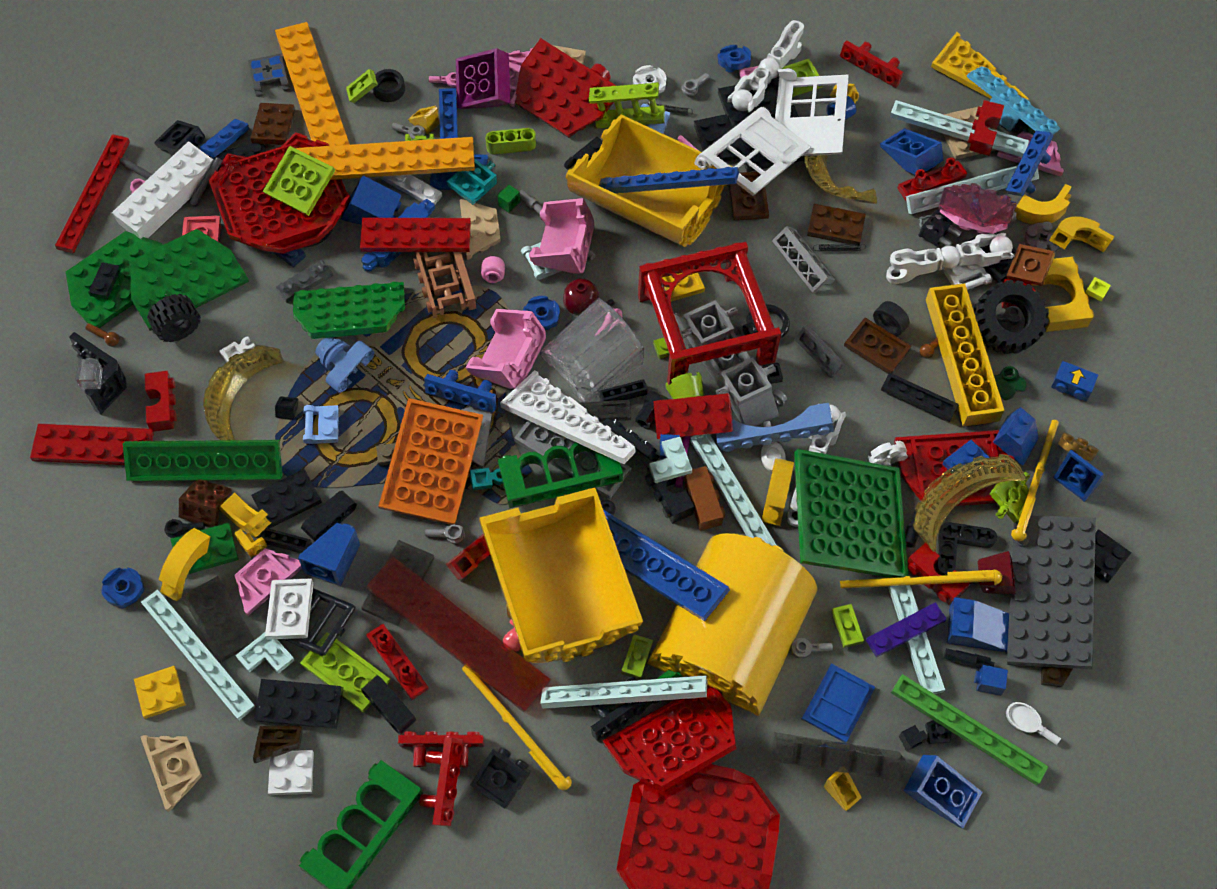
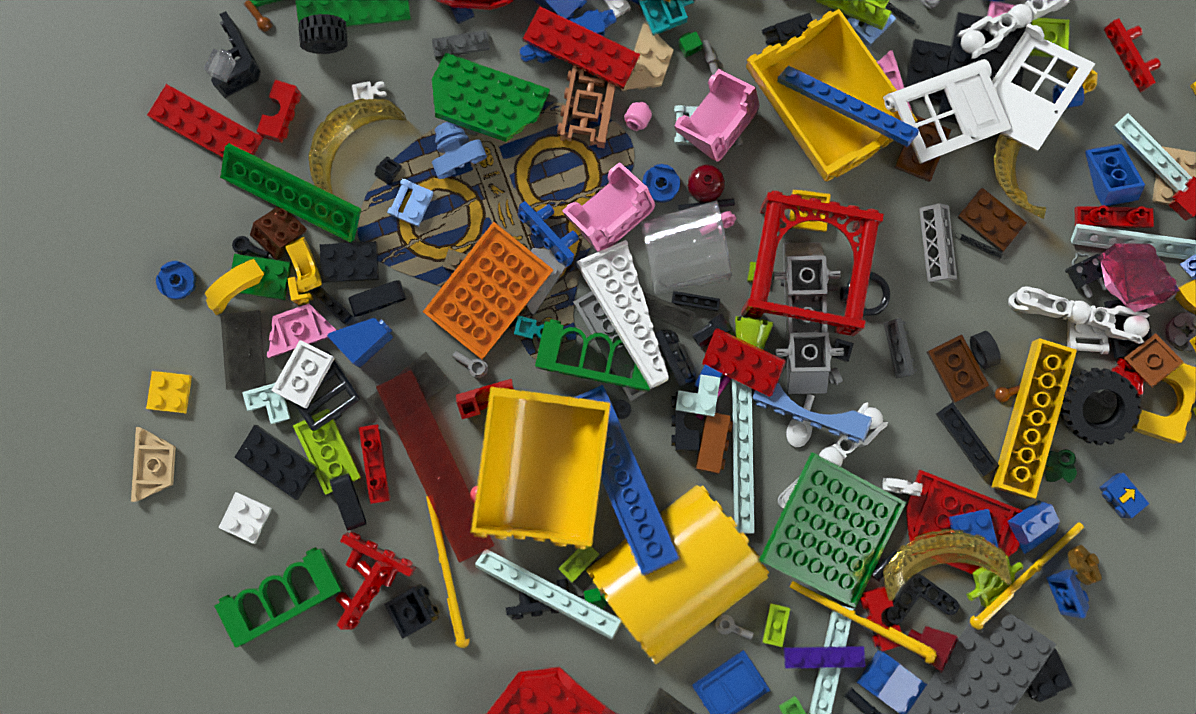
camera: 30 degrees right, 20 degrees up
(198, 655) = (212, 374): light aqua plate -> none
(276, 741) = (243, 487): dark brown wing -> none
(675, 740) = (569, 658): red plate -> none
(777, 491) = (784, 469): yellow arch -> none

